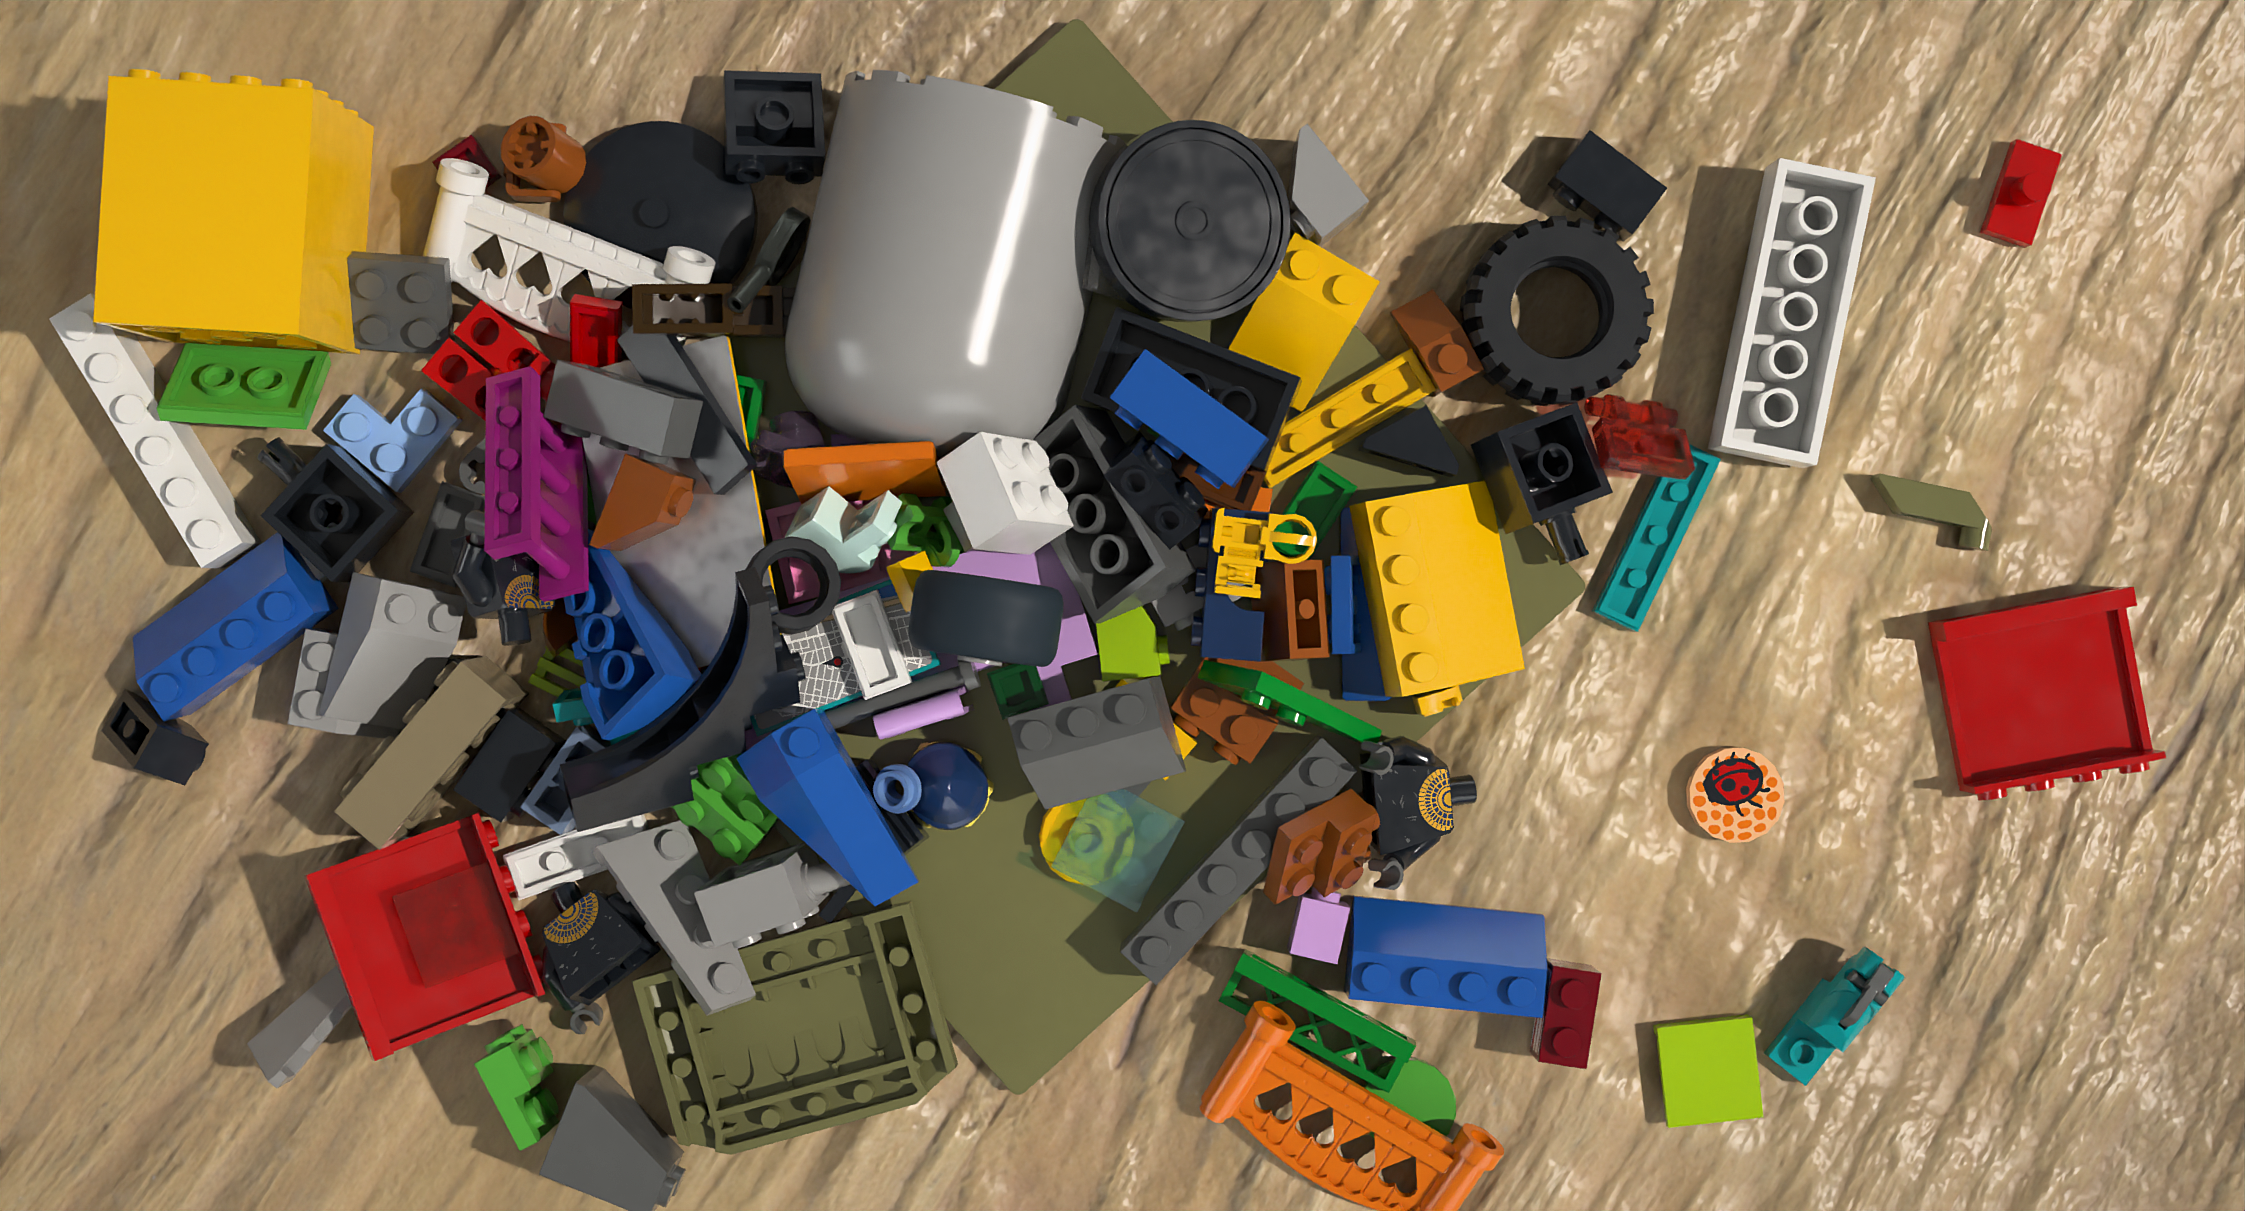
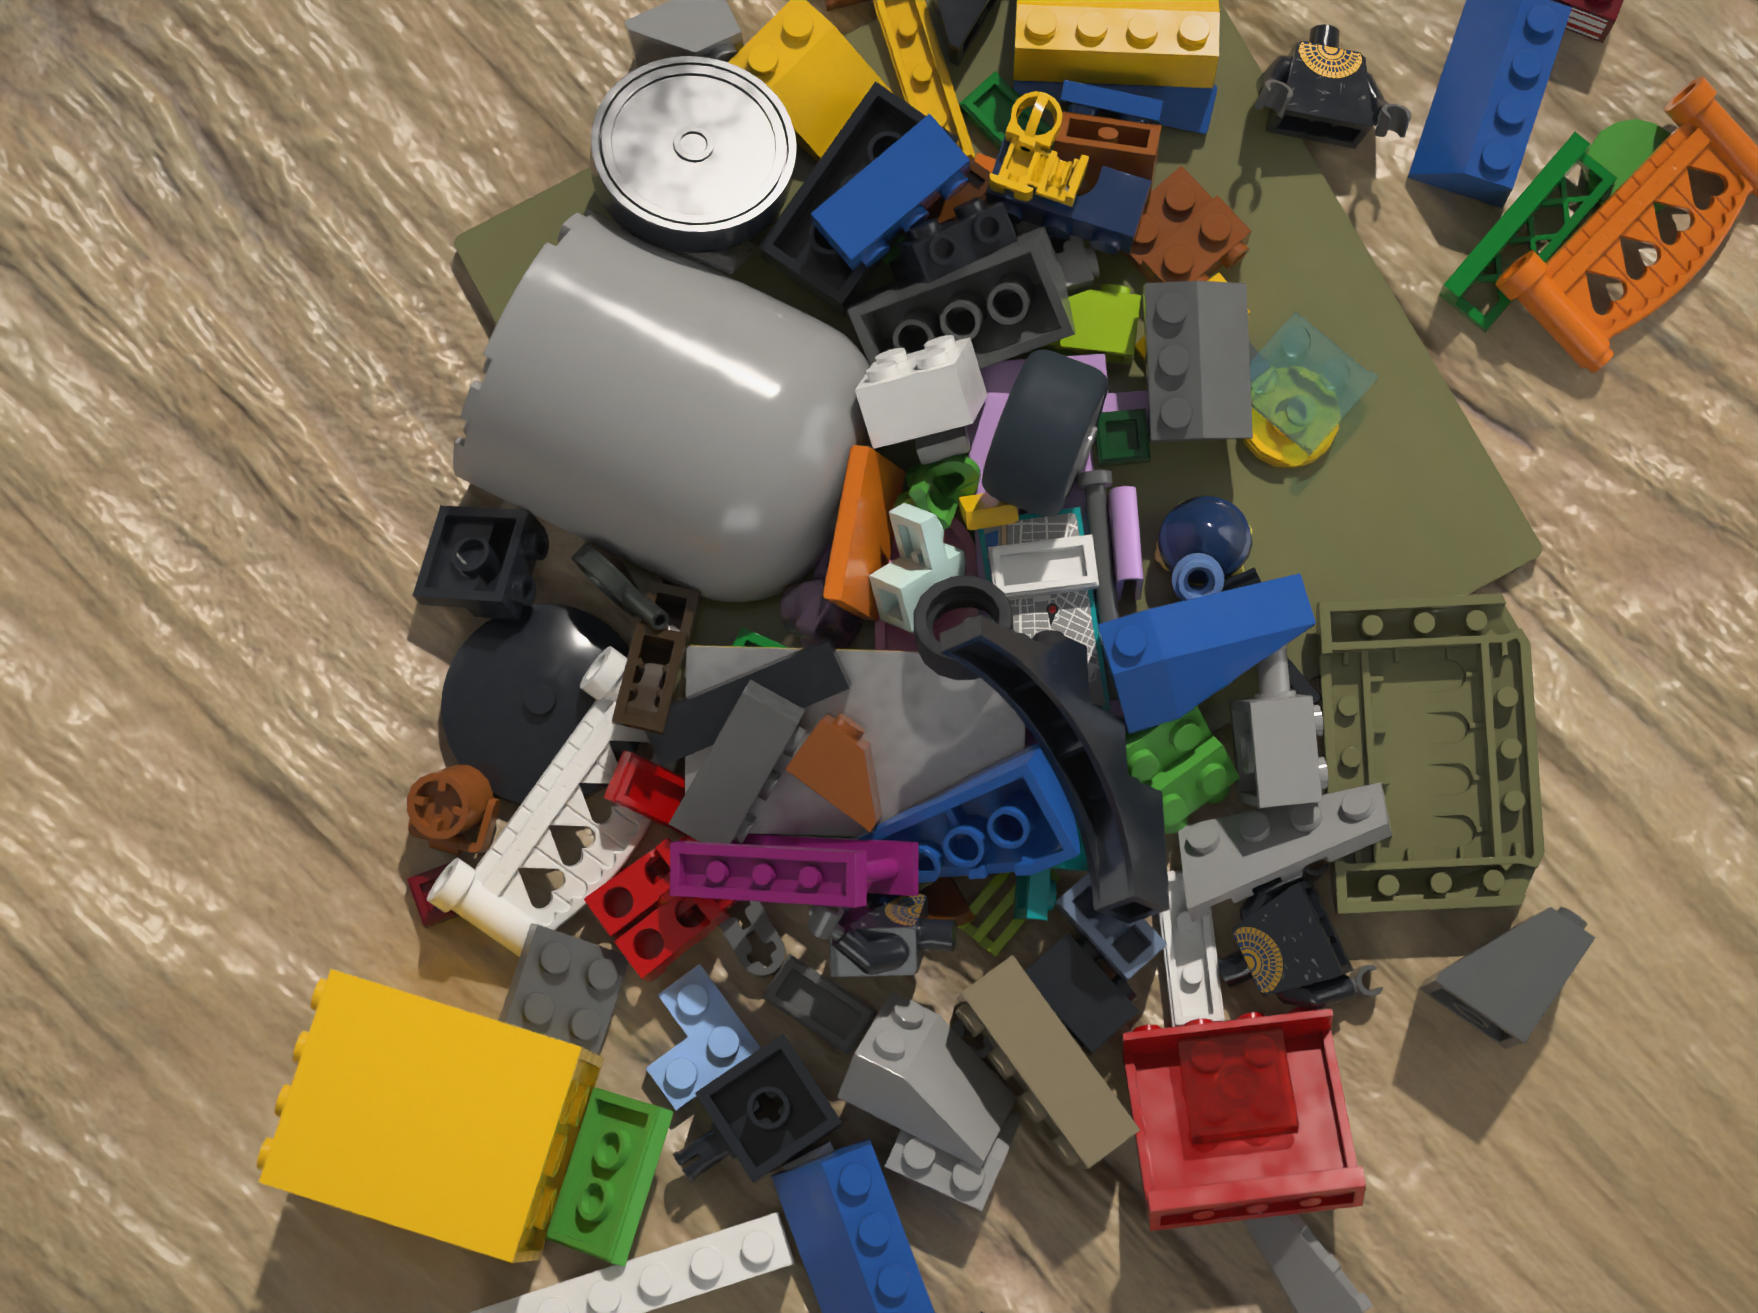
camera: 70 degrees left, 10 degrees down
(512, 1076) = (1412, 1054): bright green plate -> none
(1233, 861) = (1345, 267): dark grey brick -> none
(1291, 703) = (1192, 175): green wing -> none
(1318, 926) = (1430, 210): lavender brick -> none
(1322, 848) = (1354, 177): dark orange plate -> none
(1437, 700) = (1229, 45): yellow tile -> none

